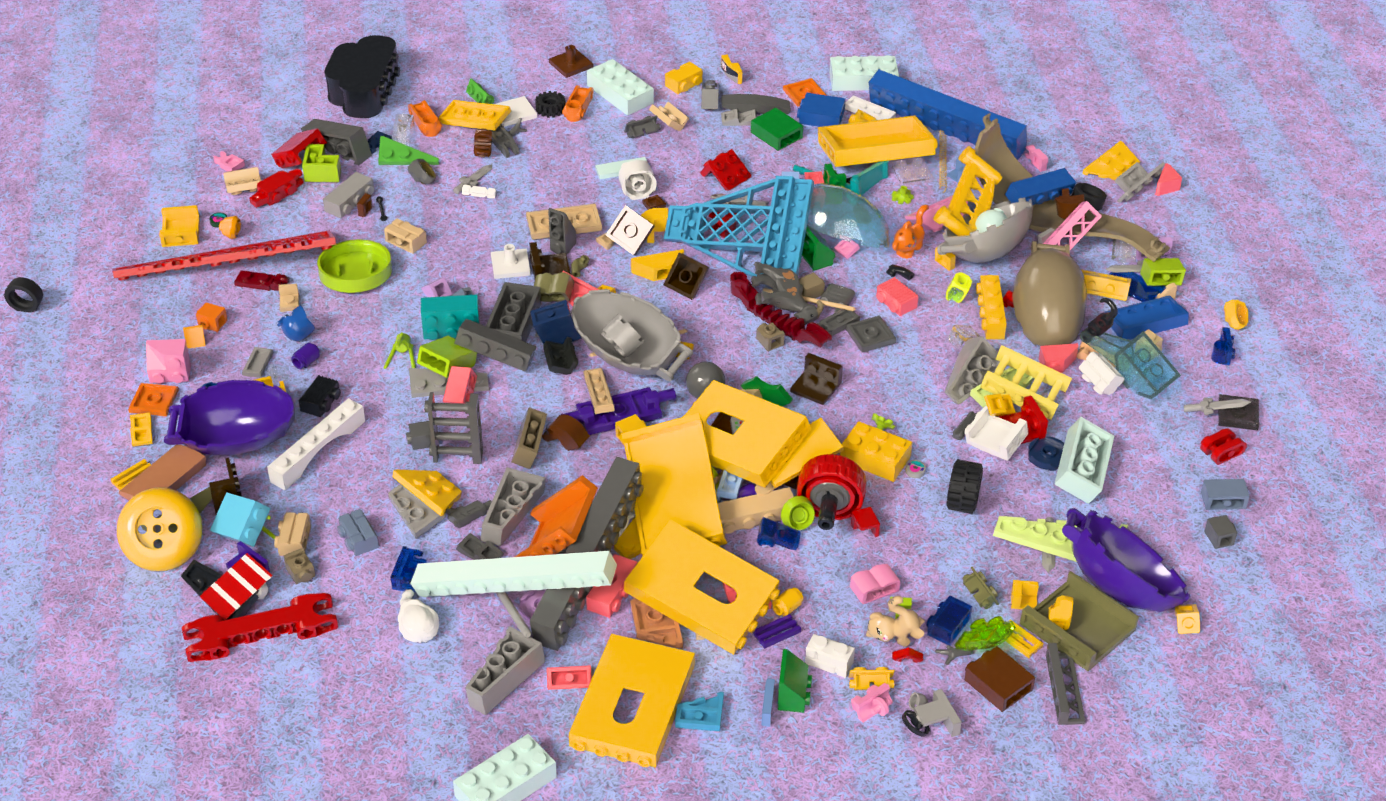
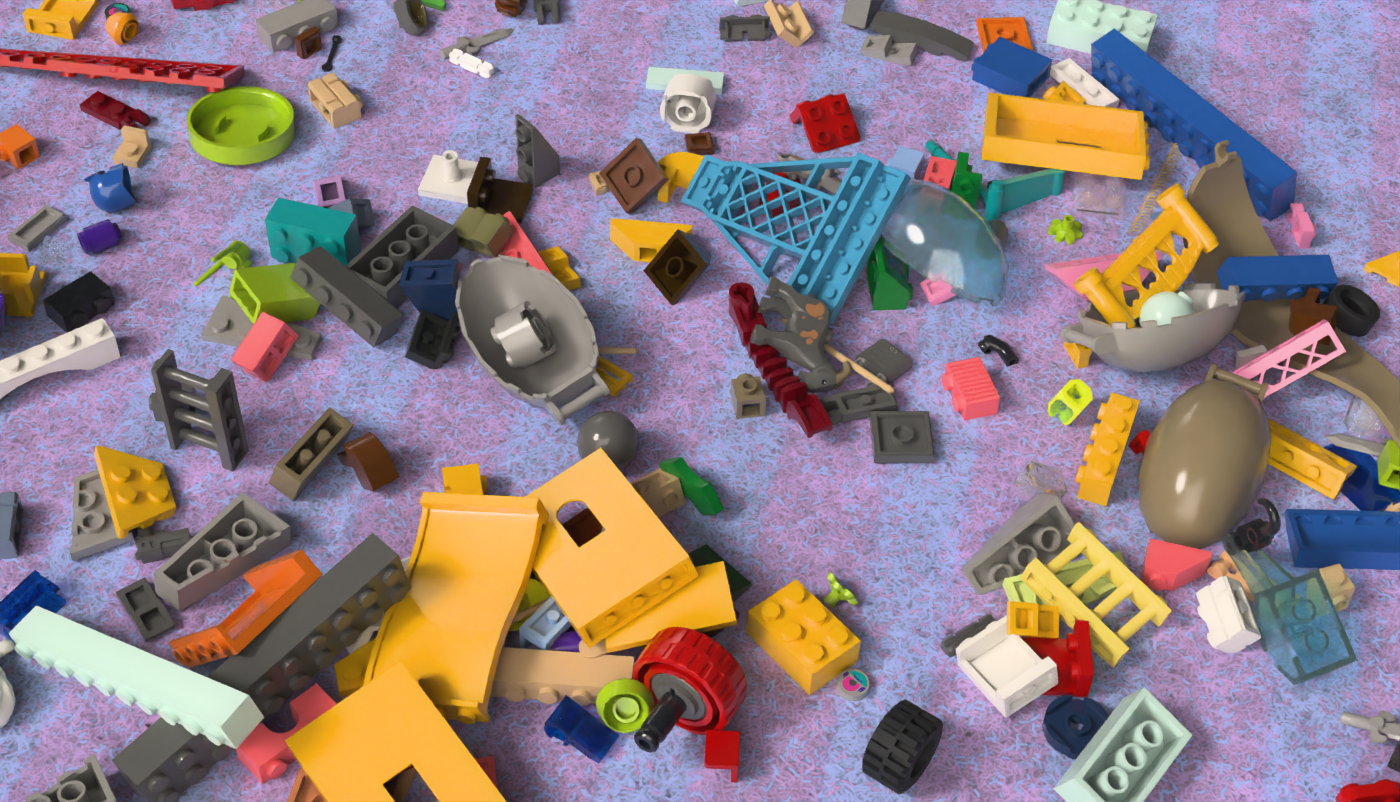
camera: 20 degrees right, 5 degrees up
(514, 614) = (112, 743): light grey bar -> none
(579, 264) = (541, 207): olive arm -> none
(583, 218) = (570, 137): tan plate -> none
(598, 391) = (452, 409): tan tile -> none
(640, 402) = (442, 444): dark purple plate -> none
(776, 129) = (931, 80): green brick -> none
(812, 285) = (850, 334): dark tan brick -> none
(818, 379) = (779, 490): dark brown bracket -> none
(910, 236) = (1030, 302): orange animal -> none

